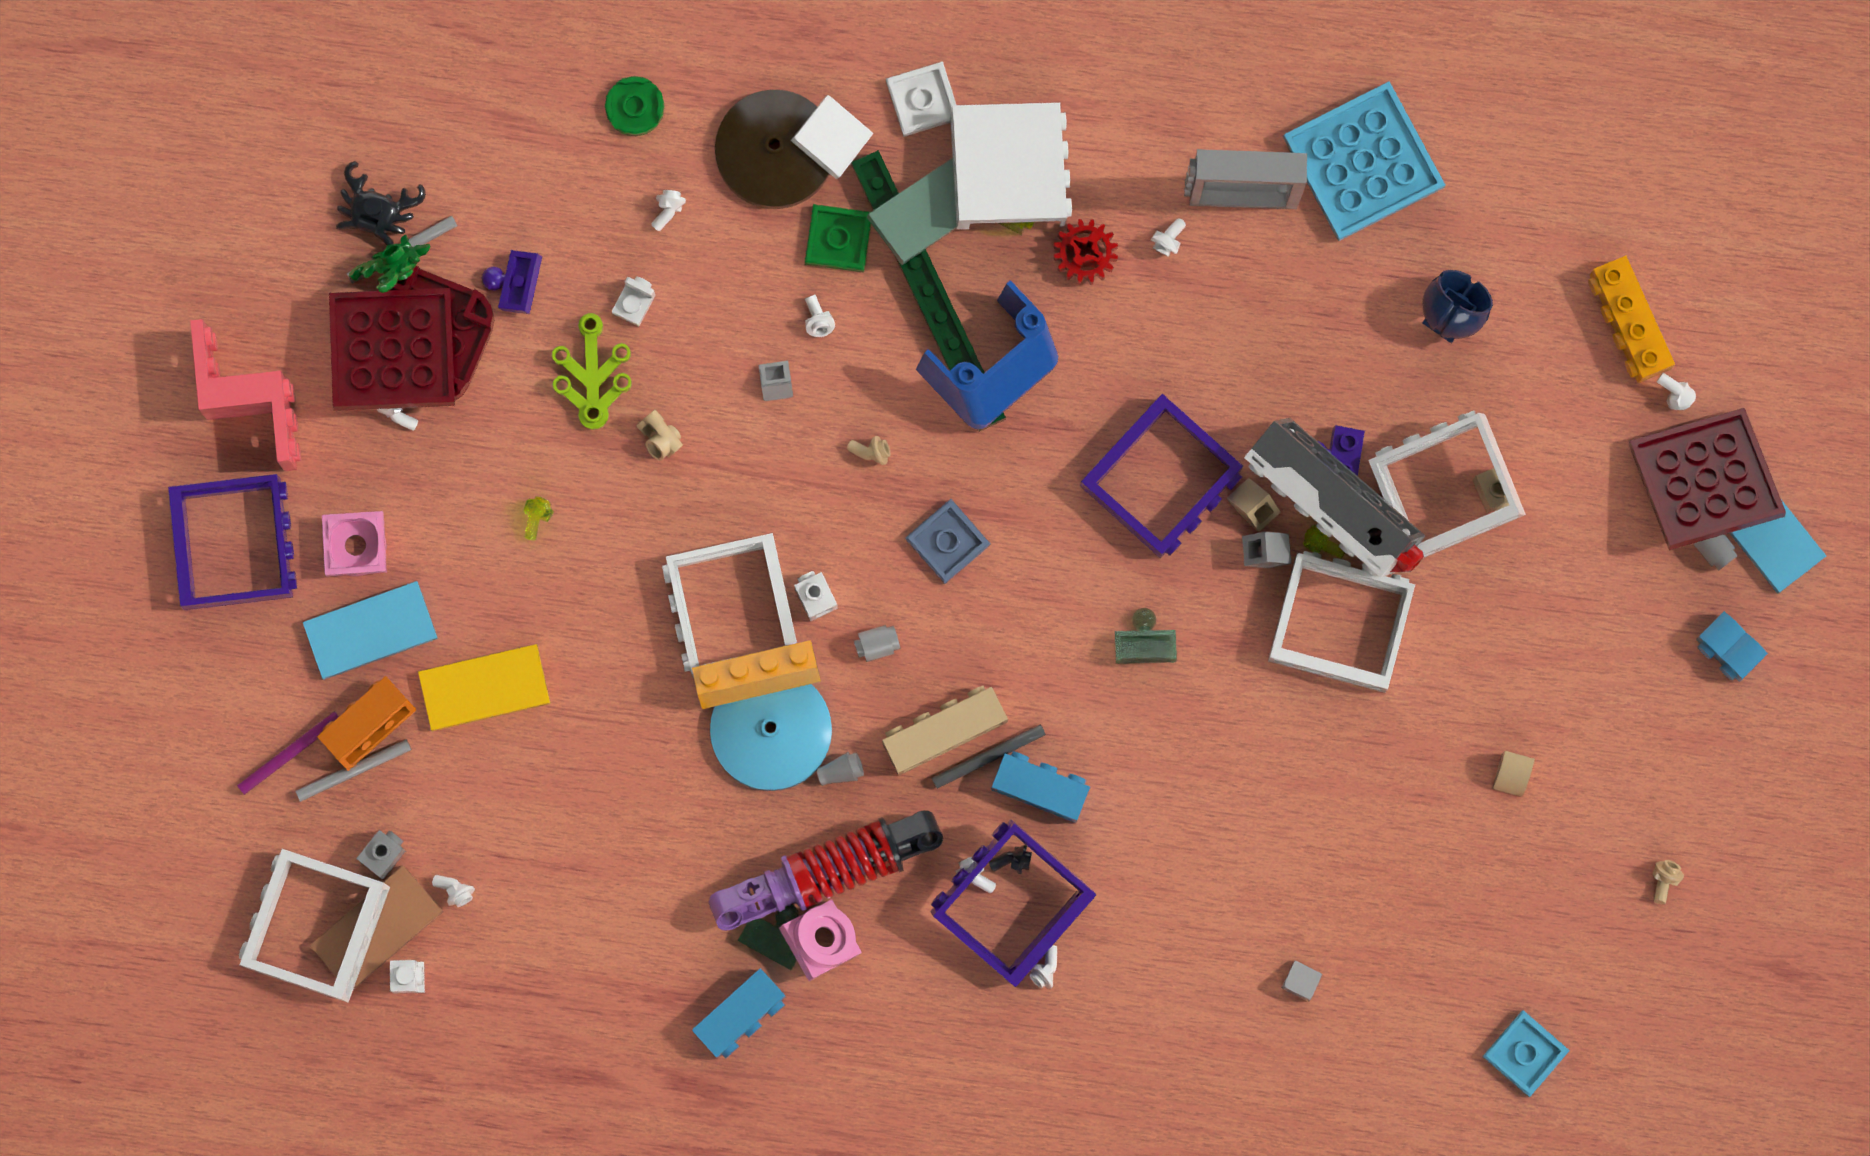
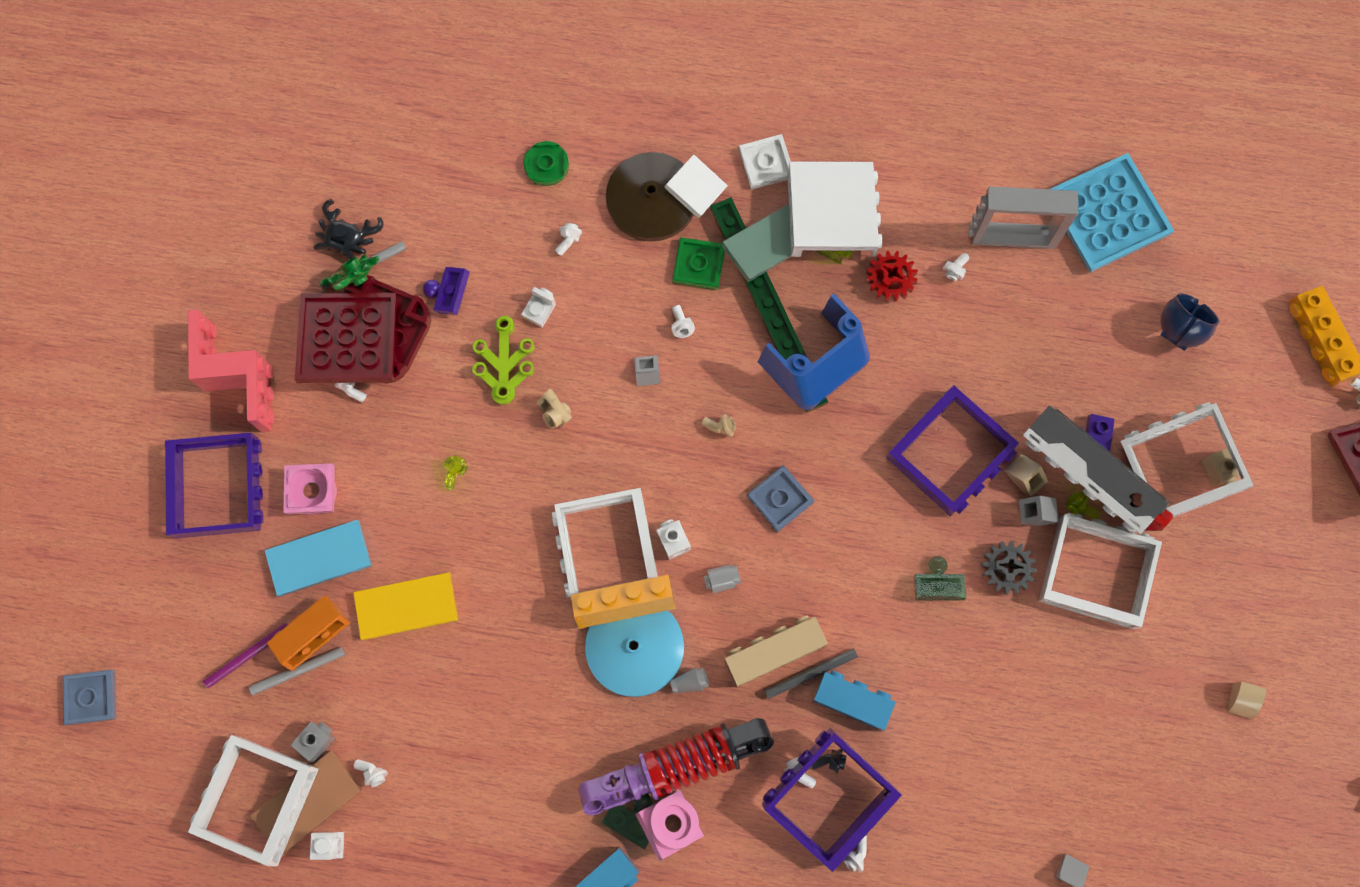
camera: 10 degrees right, 5 degrees down
(96, 809) = (89, 697): none -> sand blue tile
(1215, 619) = (1007, 579): none -> dark grey gear

